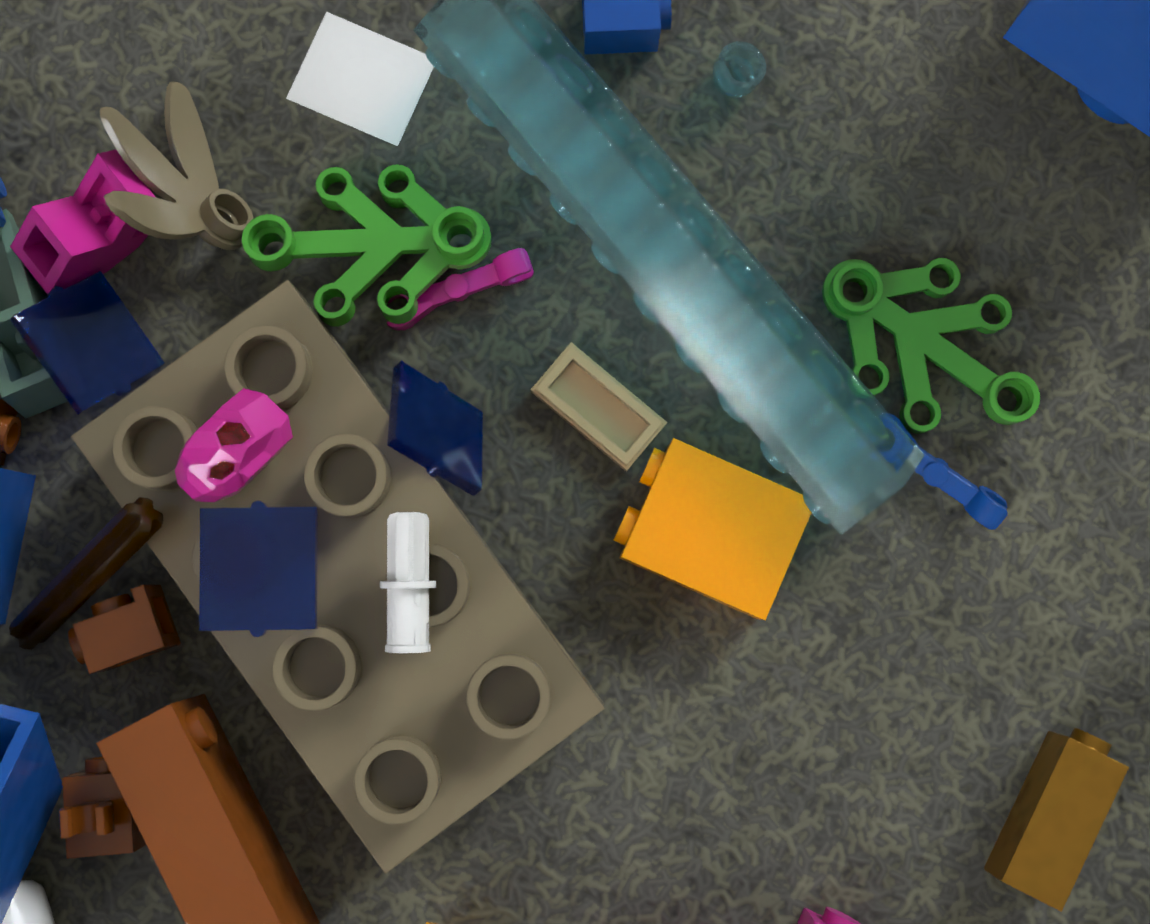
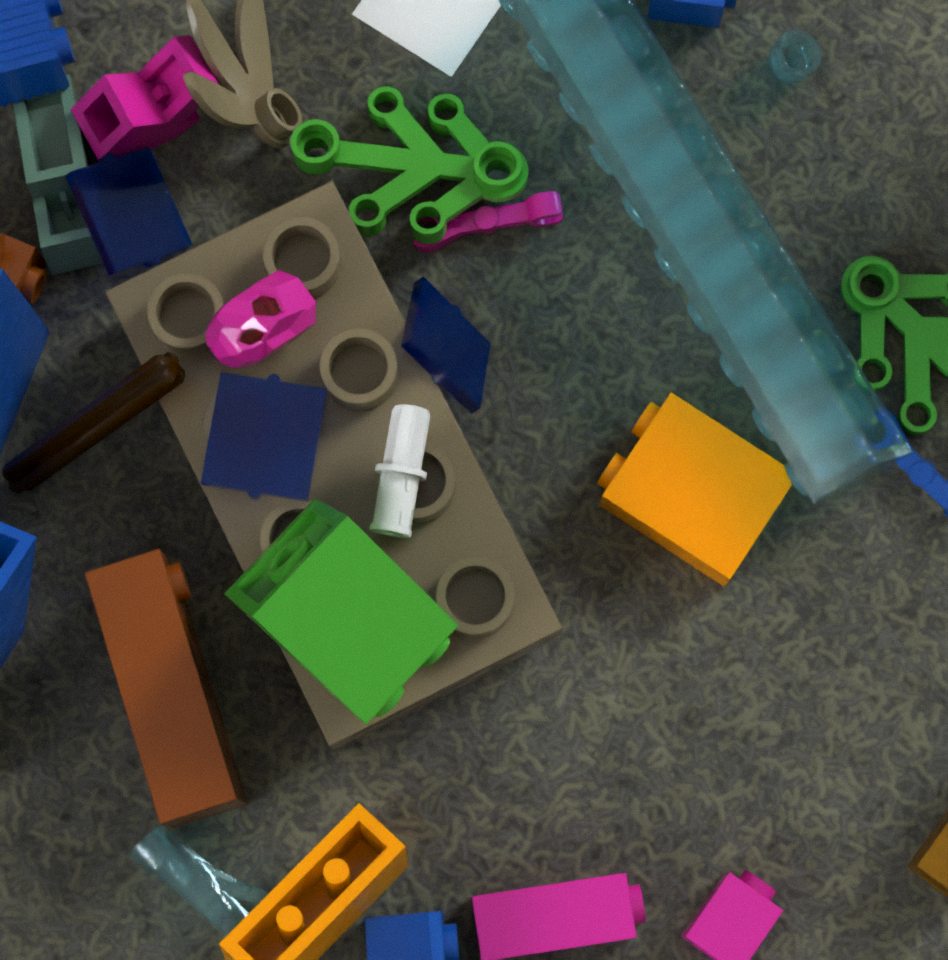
camera: 15 degrees right, 5 degrees down
(96, 815) = (67, 652): dark orange brick -> none
(124, 630) = (112, 489): dark orange brick -> none
(367, 751) = (343, 610): none -> bright green slope
(598, 406) = (604, 356): tan tile -> none

